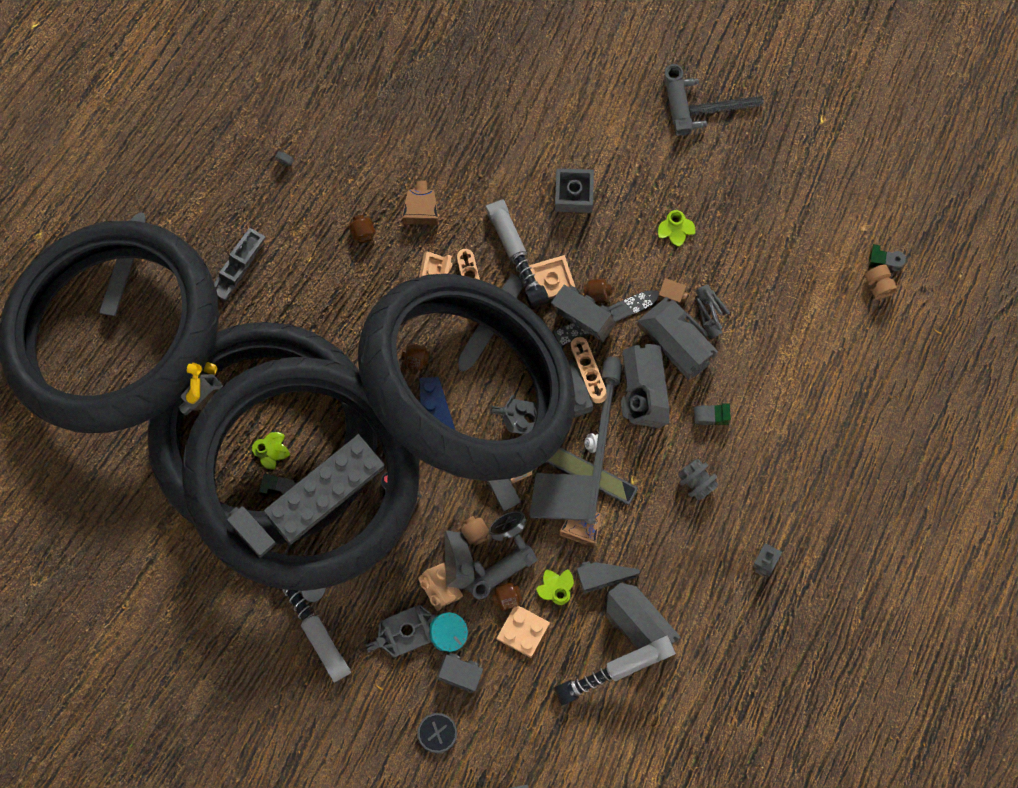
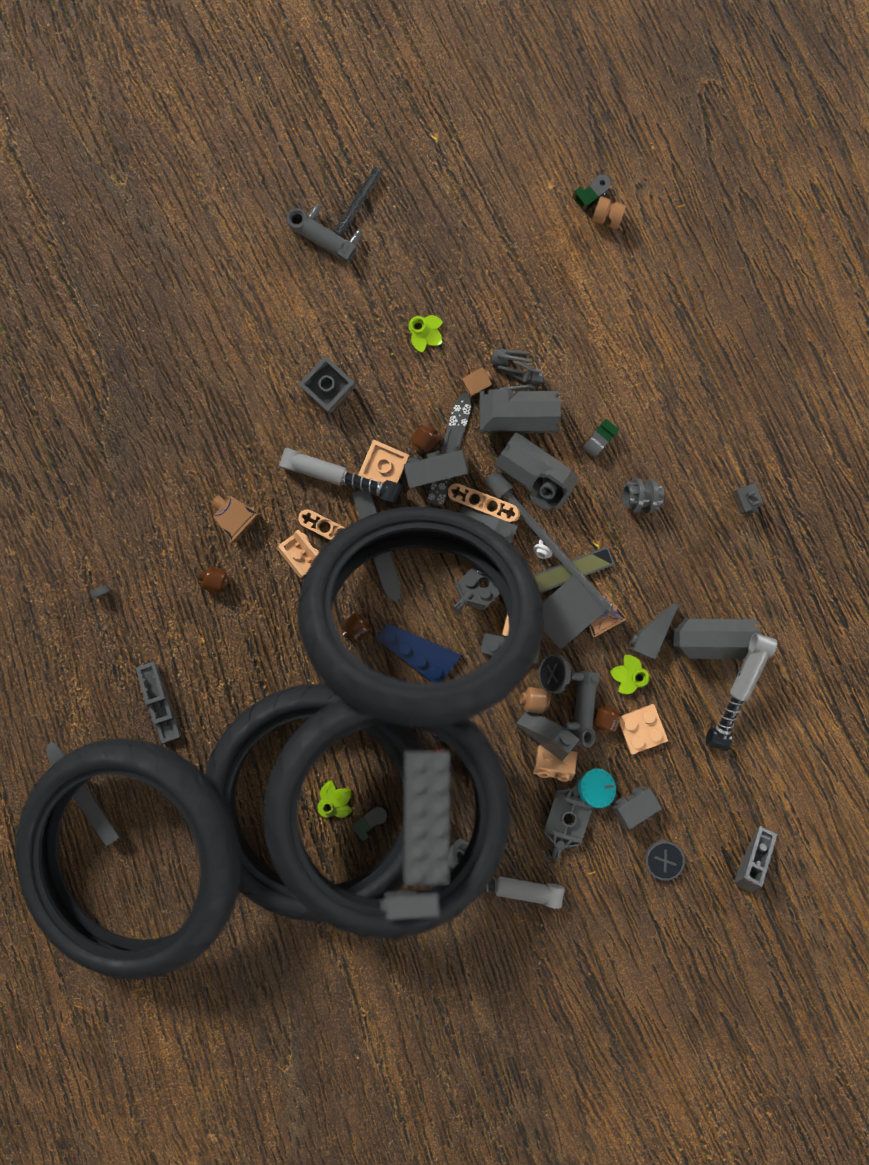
camera: 50 degrees left, 15 degrees up
(200, 388) = (251, 833): torso -> none

